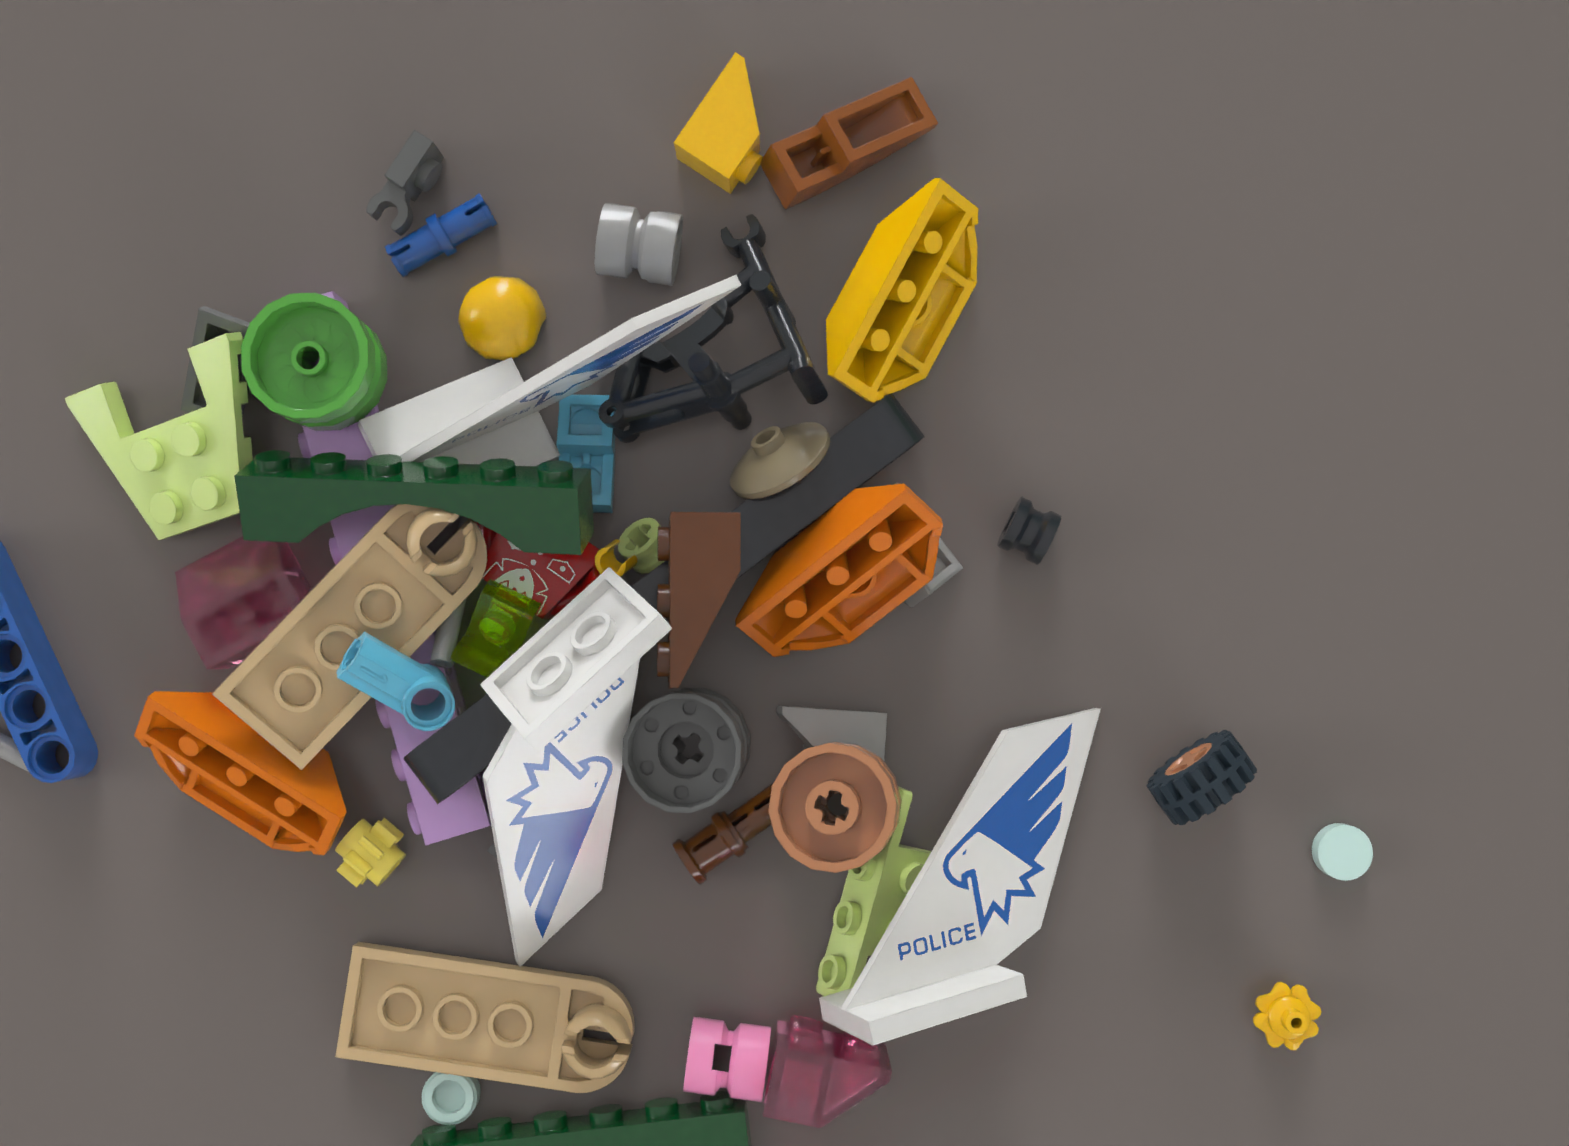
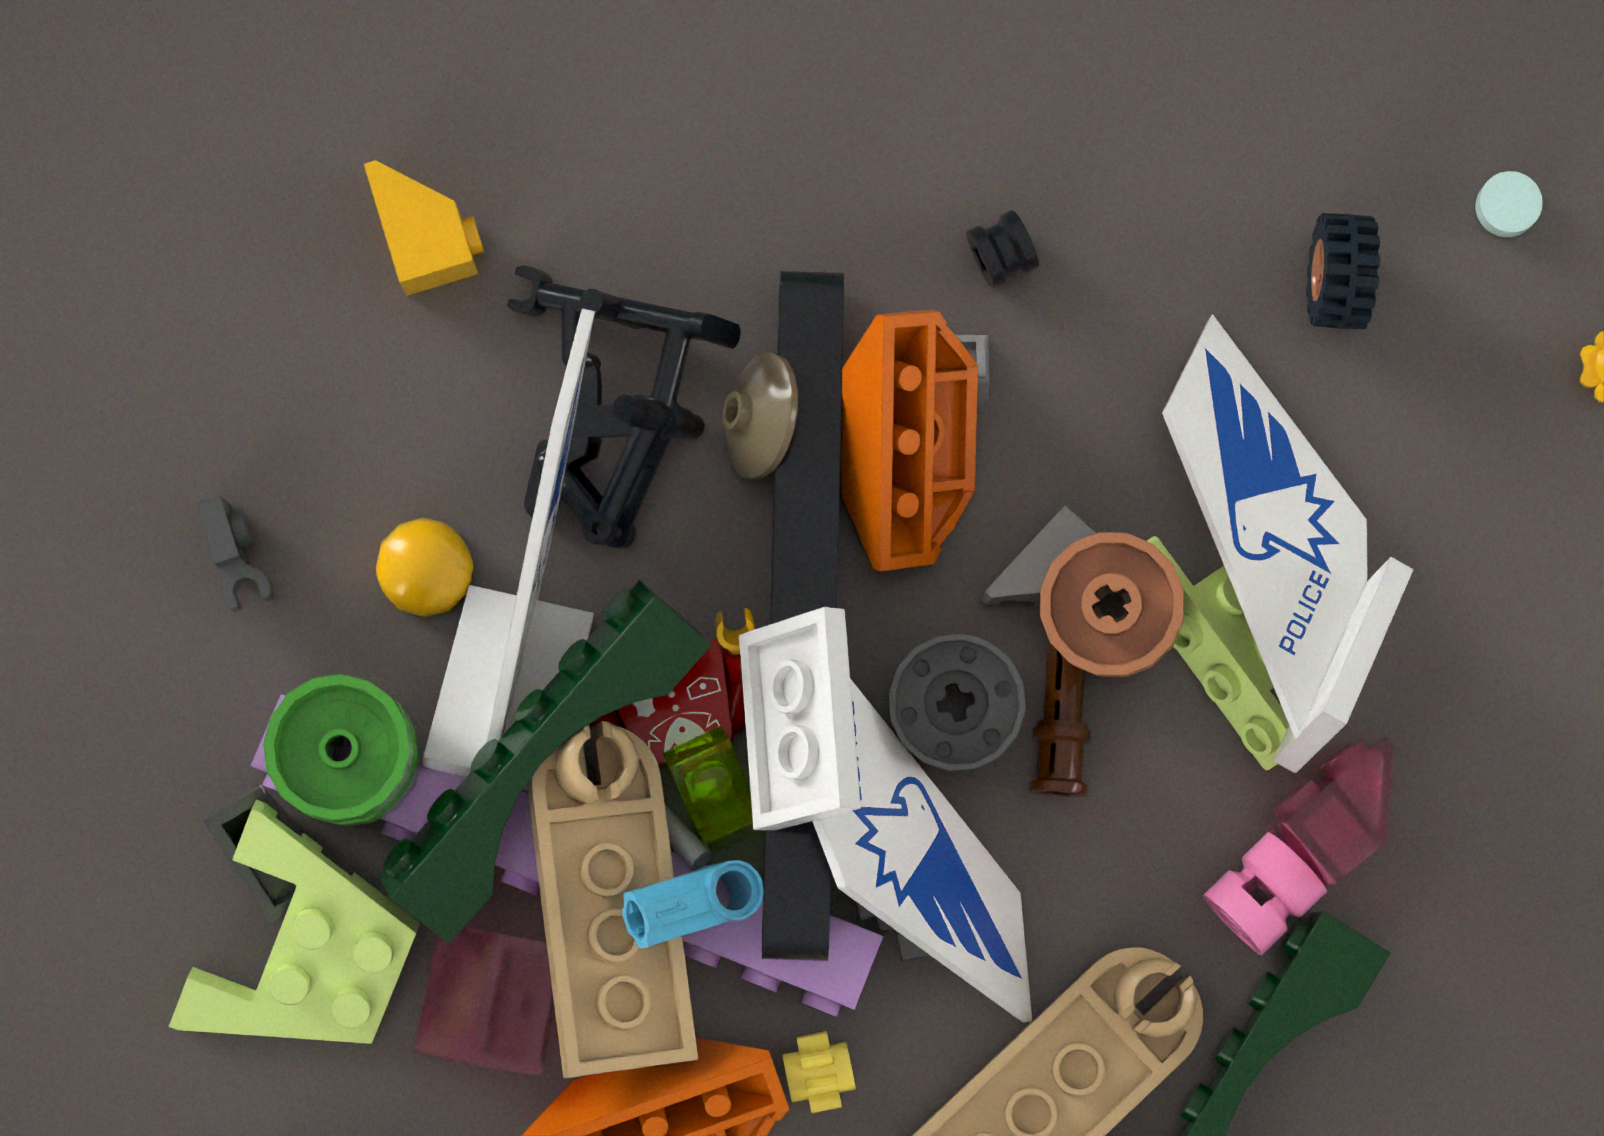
camera: 50 degrees left, 5 degrees down
(441, 235) = (303, 561): blue pin -> none
(588, 444) = (594, 573): medium azure slope -> none
(633, 243) = (459, 390): light grey wheel -> none
(641, 541) = (752, 592): yellowish green bush -> none
(702, 568) = (811, 558): reddish brown slope -> none
(847, 142) = (521, 132): dark orange slope -> none
(904, 293) = (700, 189): yellow wedge -> none

